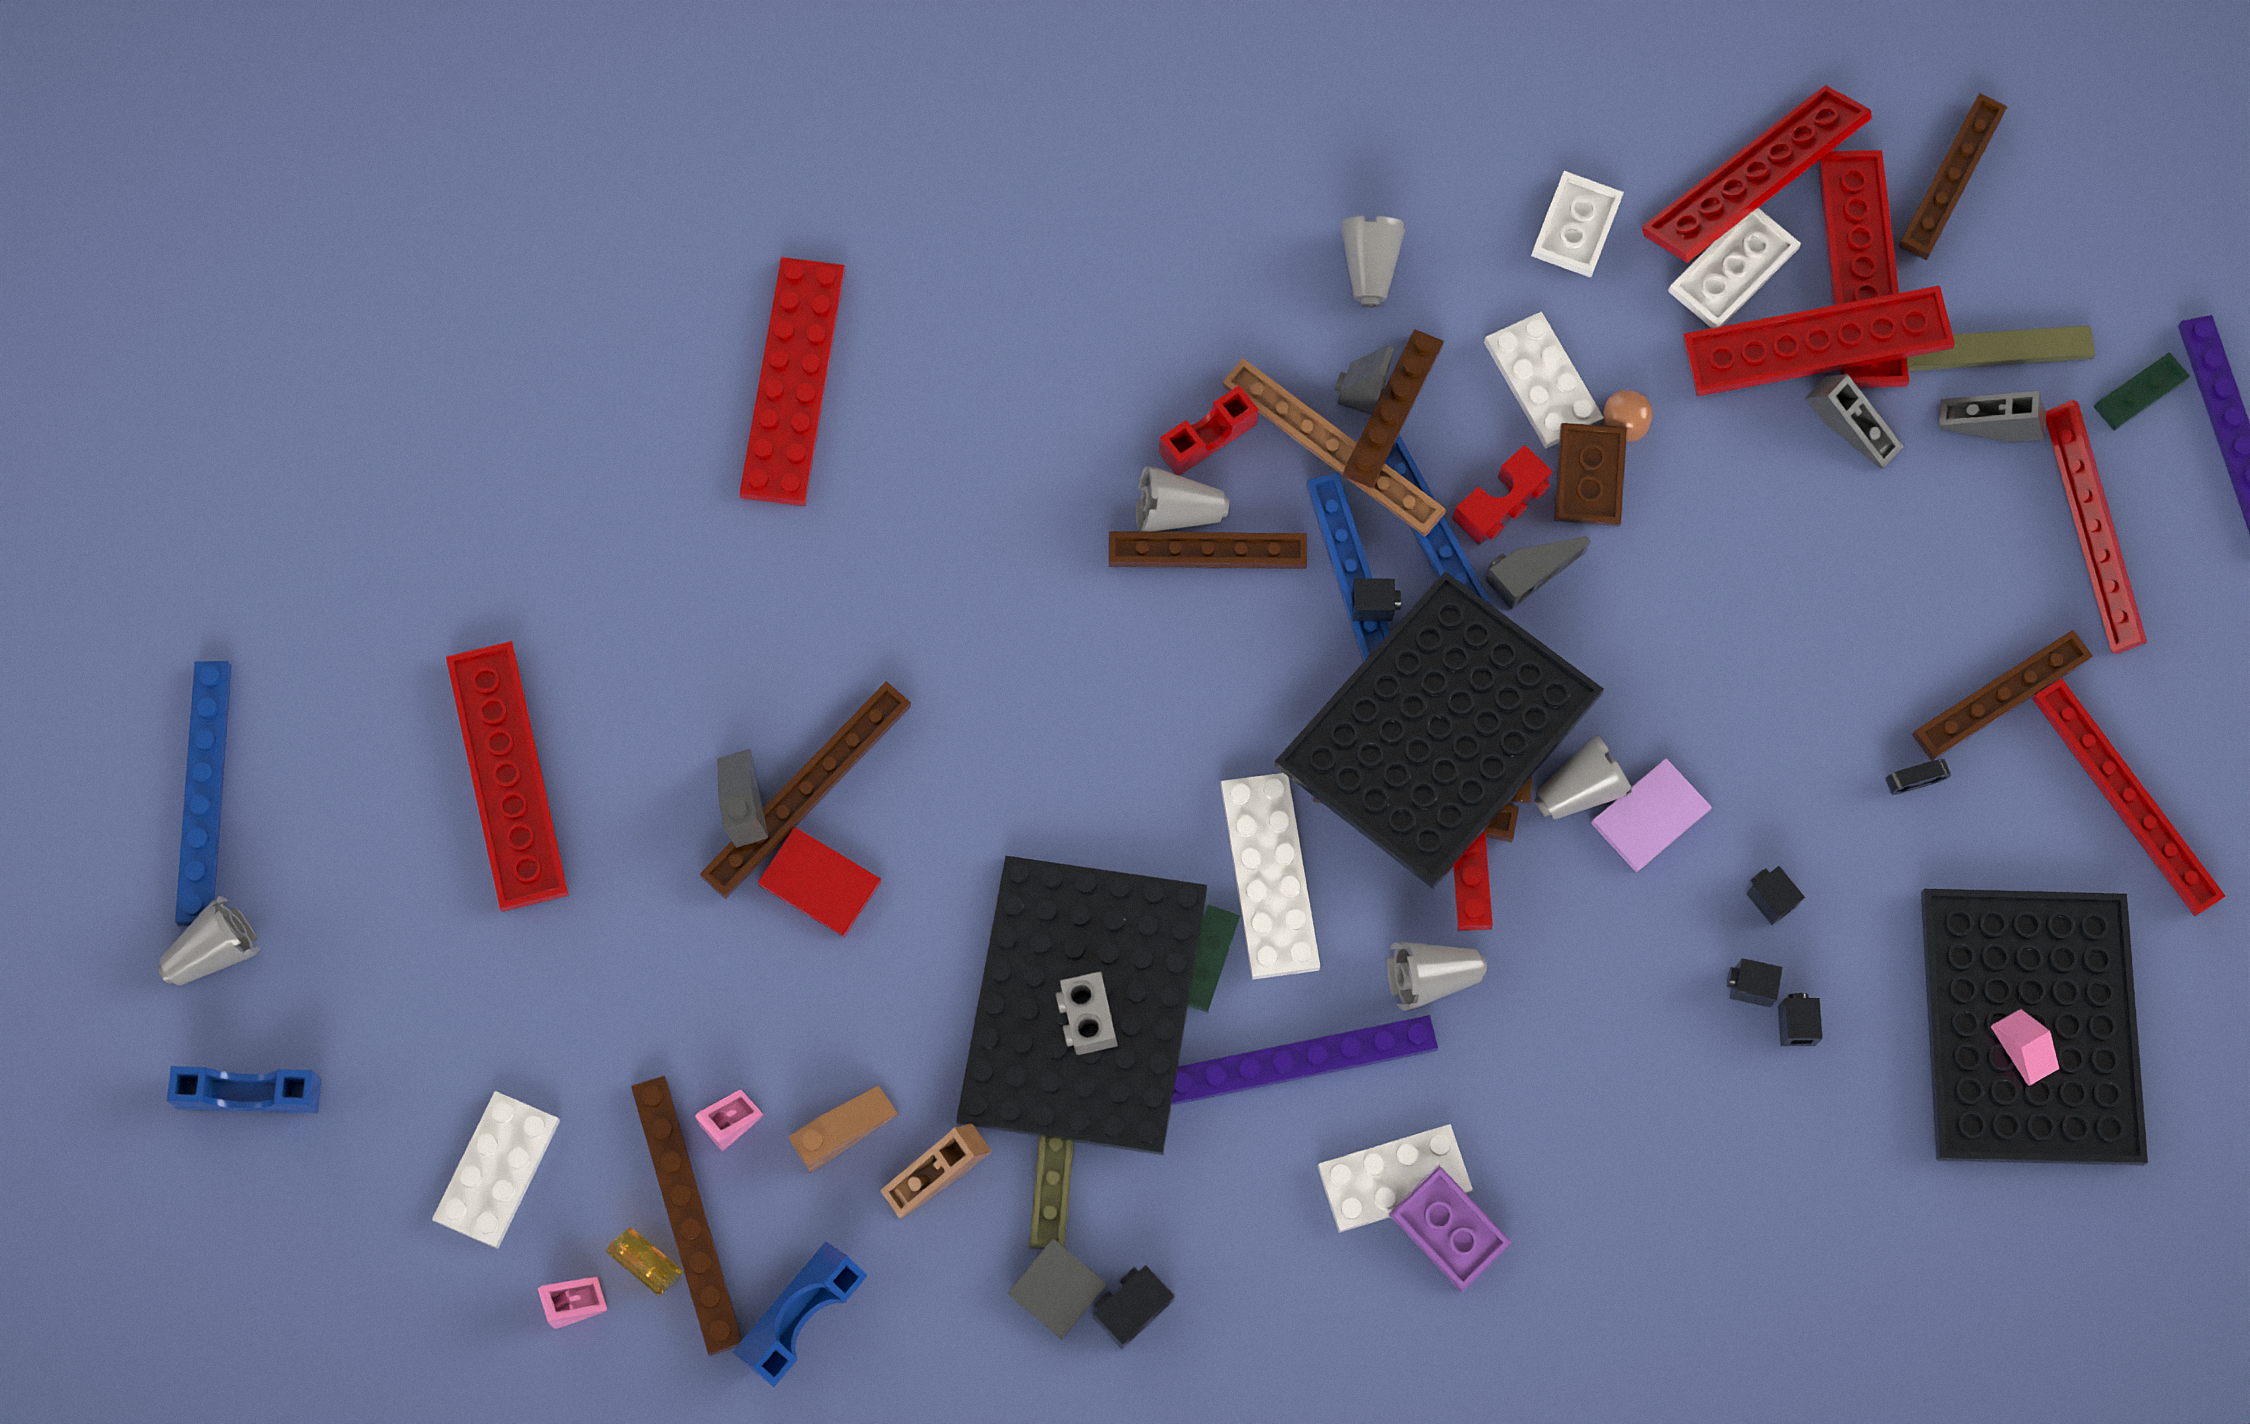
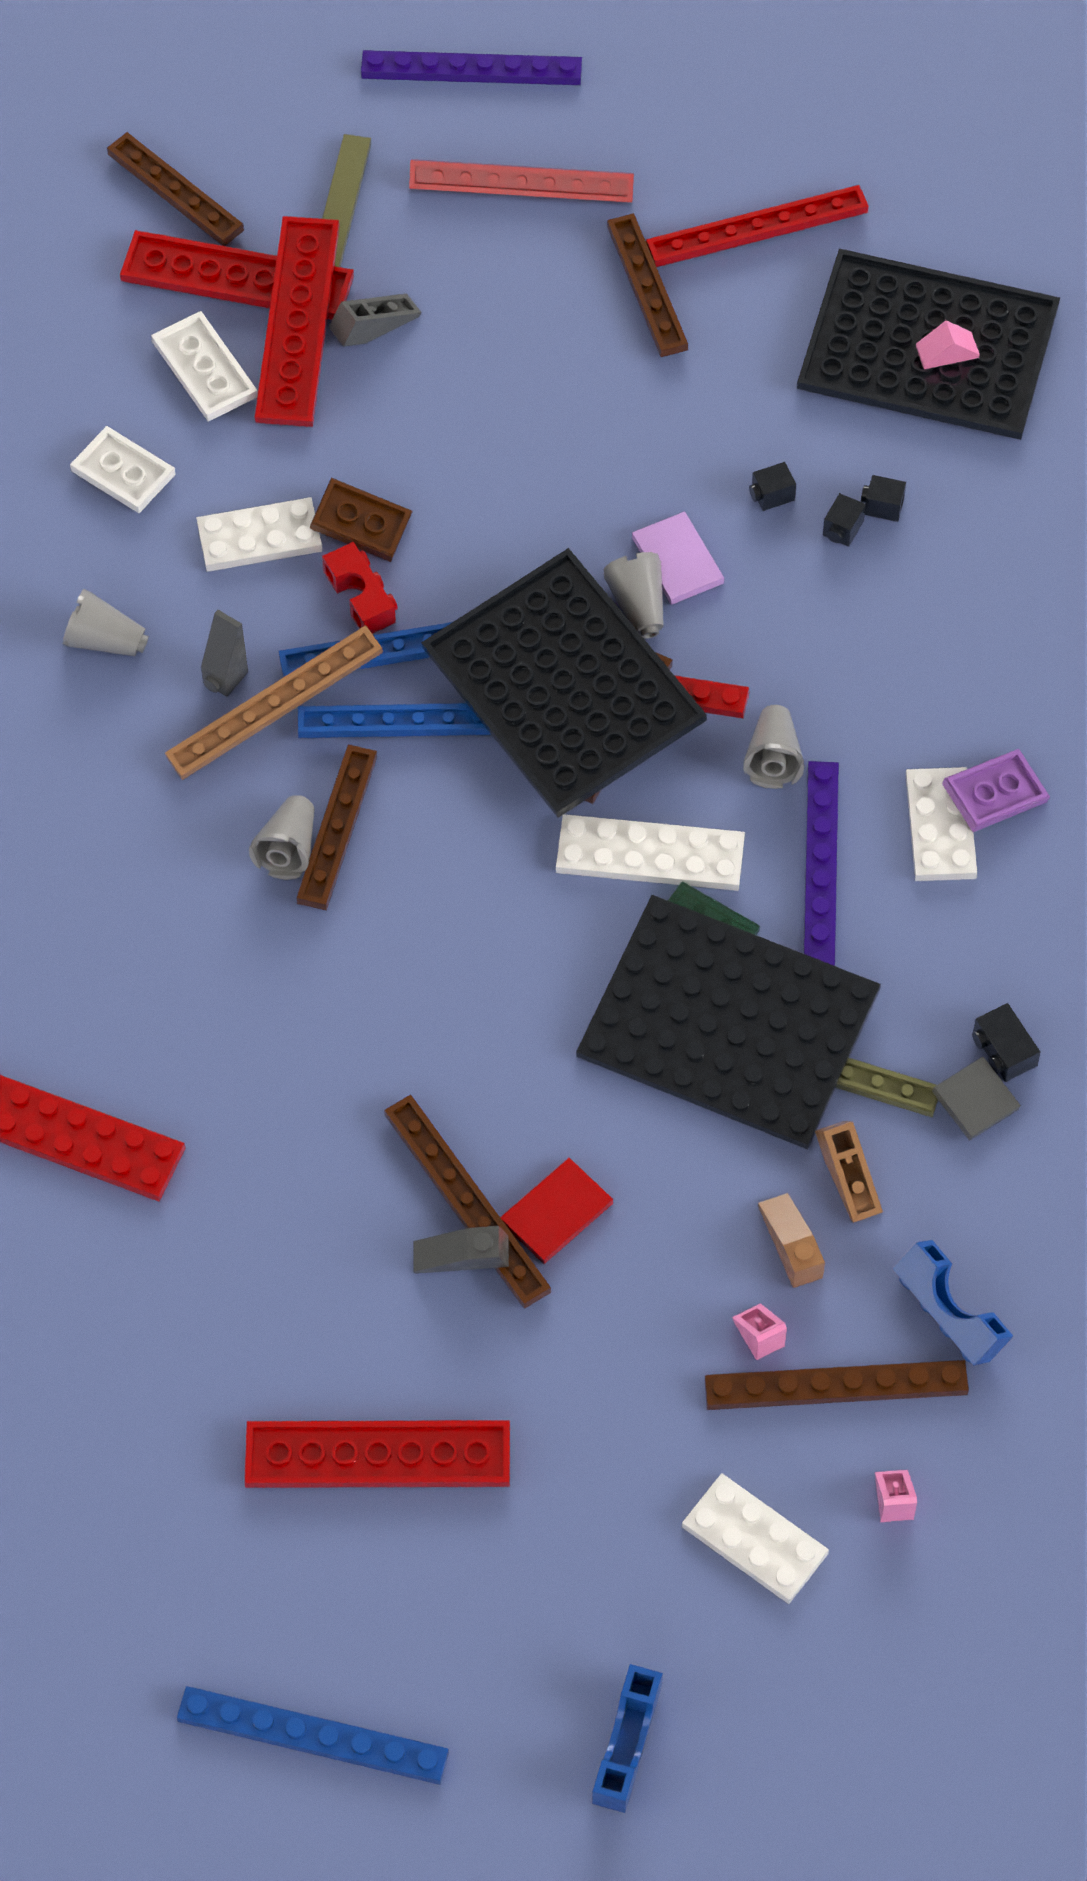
camera: 70 degrees left, 10 degrees down
(209, 944) = (476, 1748): light grey cone -> none
(644, 1261) = (873, 1424): clear yellow plate -> none
(1094, 1012) = (746, 998): light grey brick -> none
(1226, 421) = (226, 795): red arch -> none
(1374, 599) = (430, 702): black brick -> none
(1393, 409) = (263, 649): reddish brown plate -> none
(1530, 568) = (436, 592): dark grey slope -> none
(1630, 411) = (311, 478): nougat hair -> none
(1756, 173) = (125, 324): red plate -> none
(1918, 776) = (700, 361): black beam -> none
(1997, 416) = (404, 218): dark grey slope -> none
(2141, 391) = (412, 118): clear green tile -> none

